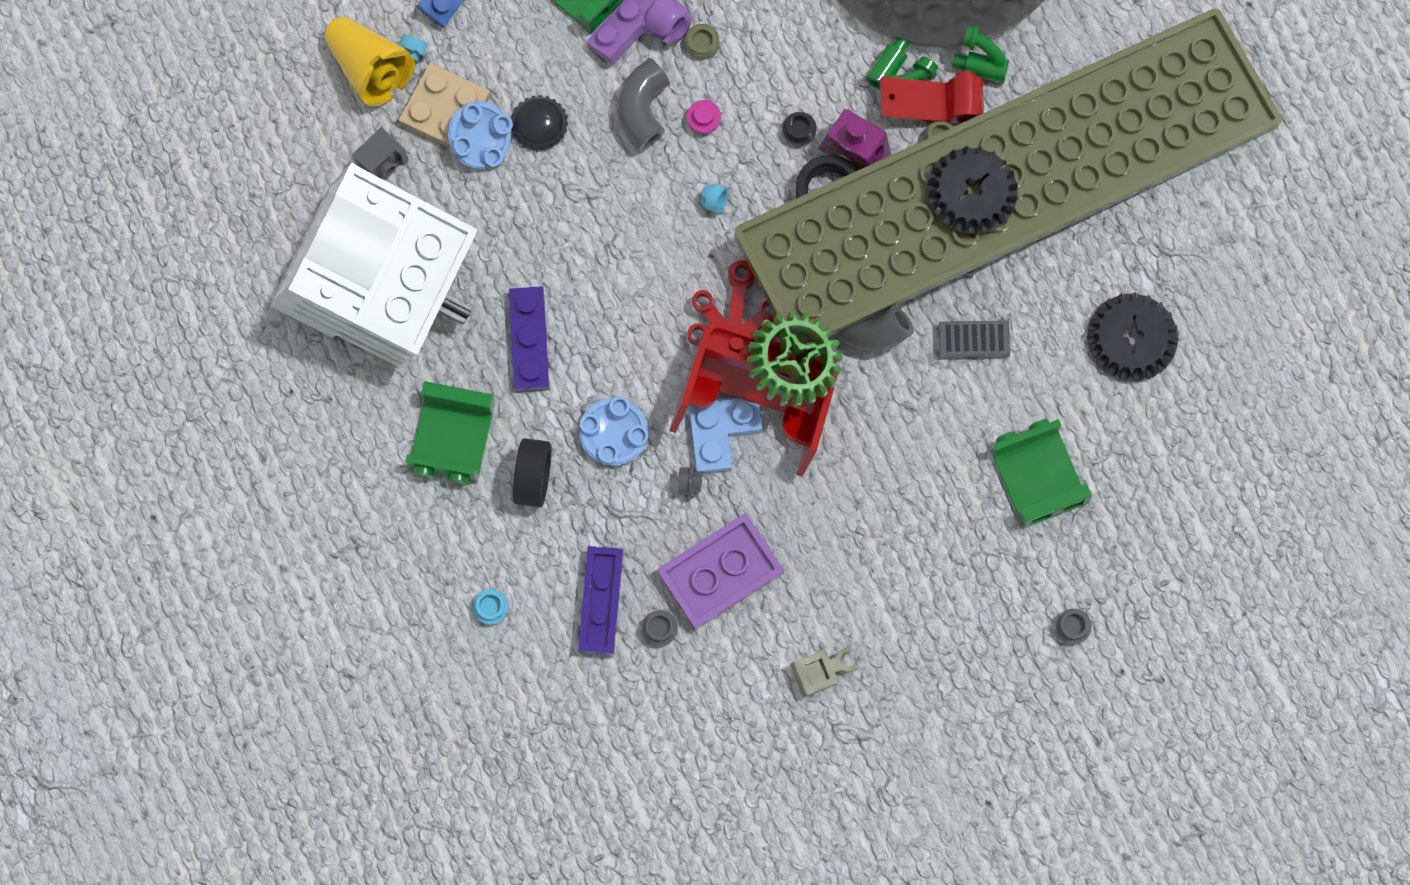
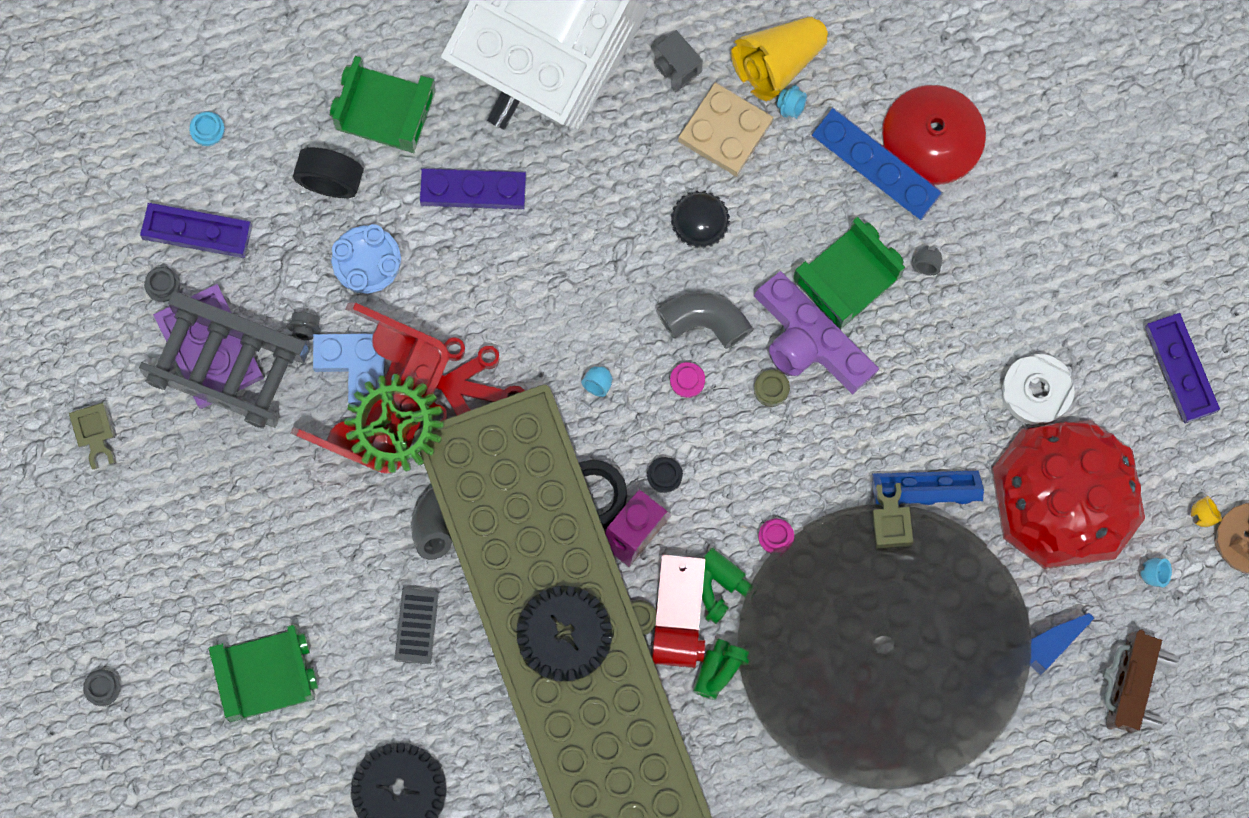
camera: 90 degrees right, 0 degrees up
(480, 134) = (689, 157): light blue dish -> none
(704, 553) = (220, 325): none -> dark grey fence
(845, 24) = (775, 534): none -> dark pink plate

